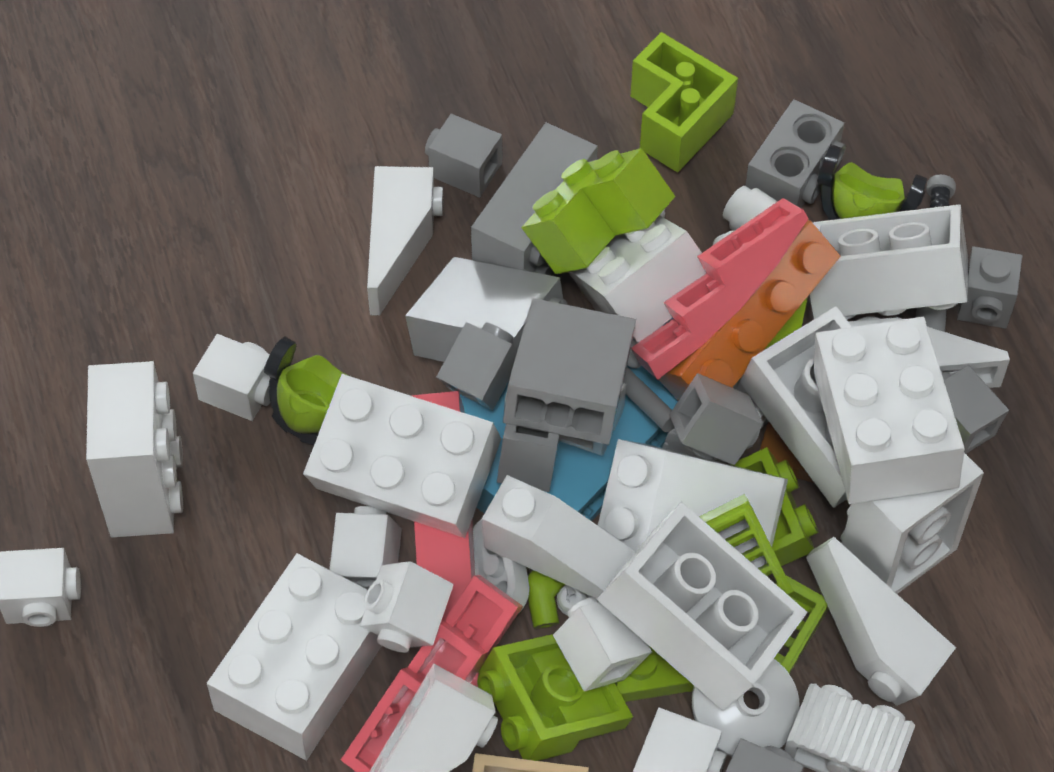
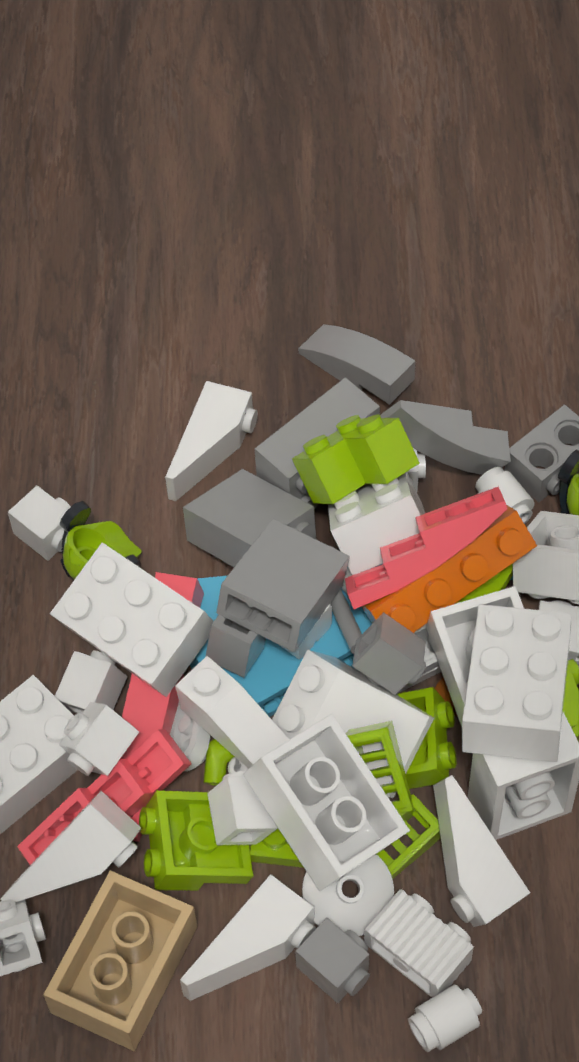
camera: 20 degrees right, 0 degrees up
(464, 154) = (284, 387): light grey brick -> none
(479, 363) = (215, 557): light grey brick -> none
(529, 99) = (361, 360): none -> light grey slope
(684, 99) = (475, 377): lime brick -> none
(691, 164) = (450, 436): none -> light grey slope

